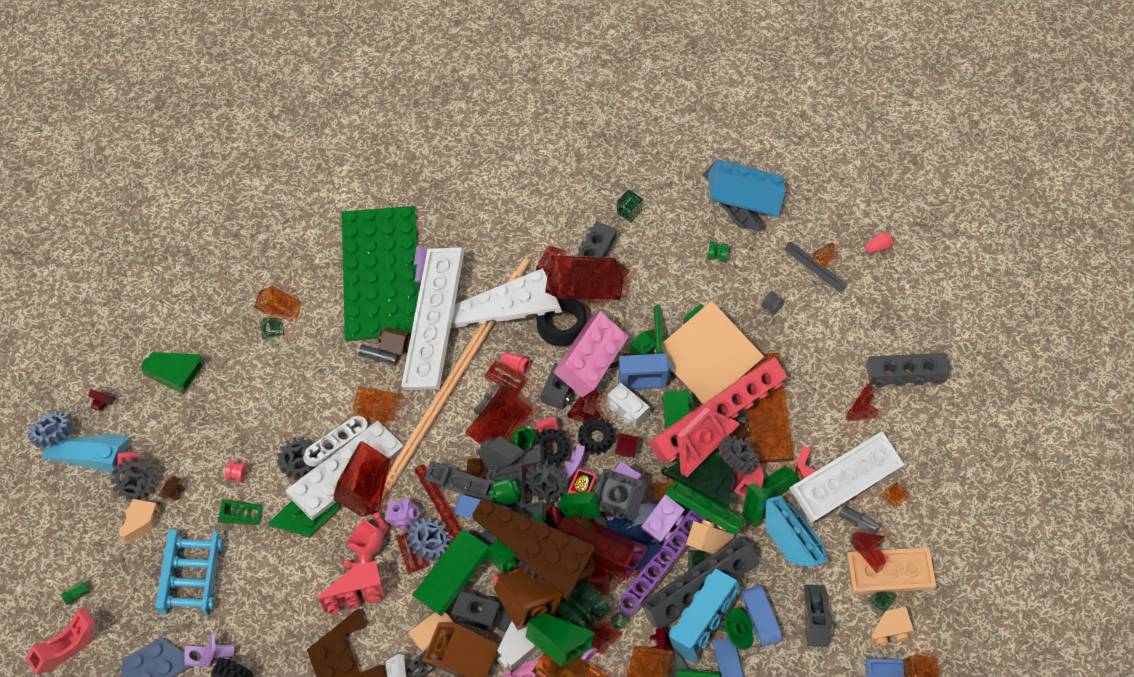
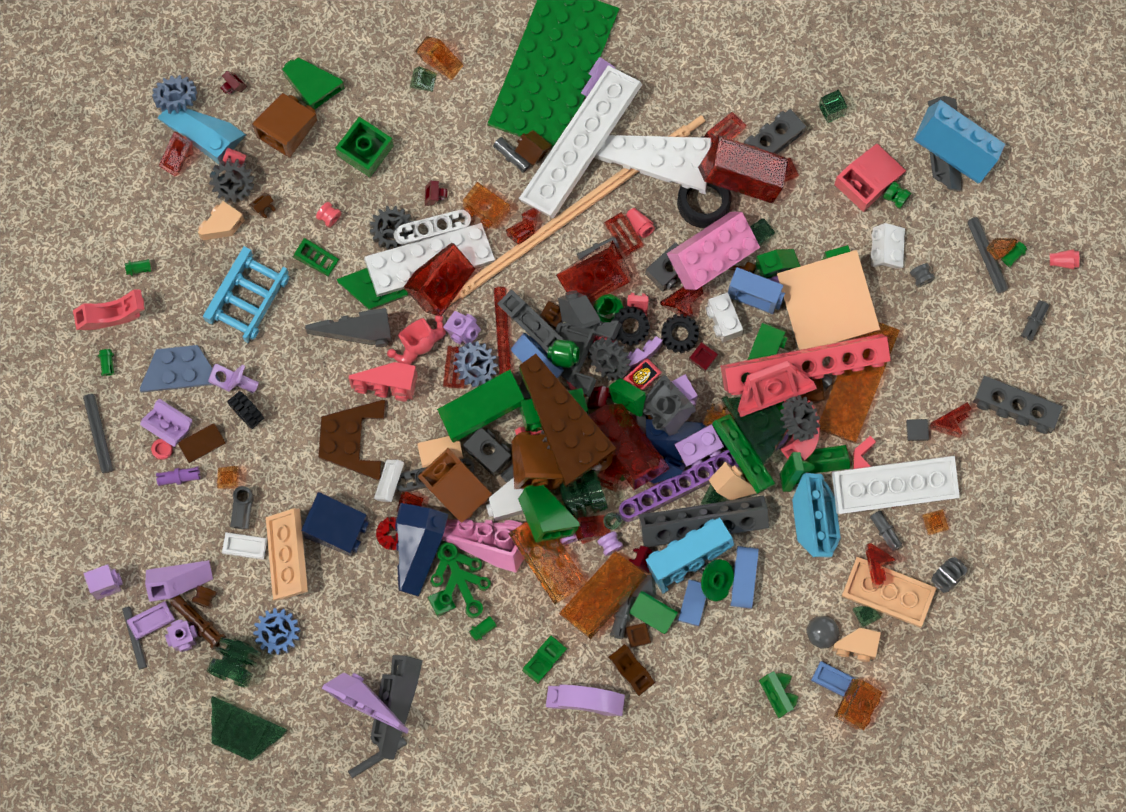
camera: 25 degrees right, 15 degrees up
(71, 478) = (176, 153): none -> clear red slope
(162, 413) = (285, 124): none -> dark orange slope
(244, 401) = (364, 147): none -> green brick
(314, 552) = (369, 328): none -> dark grey wedge
(323, 413) = (434, 193): none -> dark red tile
(418, 409) = (525, 229): none -> clear red slope
(624, 323) = (762, 231): none -> clear green slope
(626, 641) = (610, 543): none -> lavender wheel
(658, 330) = (792, 254): green bar -> none
(687, 248) = (869, 177): none -> coral slope
(731, 293) = (888, 246): none -> white bracket
(816, 616) = (795, 600): dark grey slope -> none
(837, 426) = (917, 430): none -> dark grey tile
(839, 252) = (1015, 253): none -> green pin
(854, 631) = (823, 632): none -> dark grey hair
(882, 299) = (1035, 320): none -> dark grey axle
(934, 530) = (949, 574): none -> dark grey gear

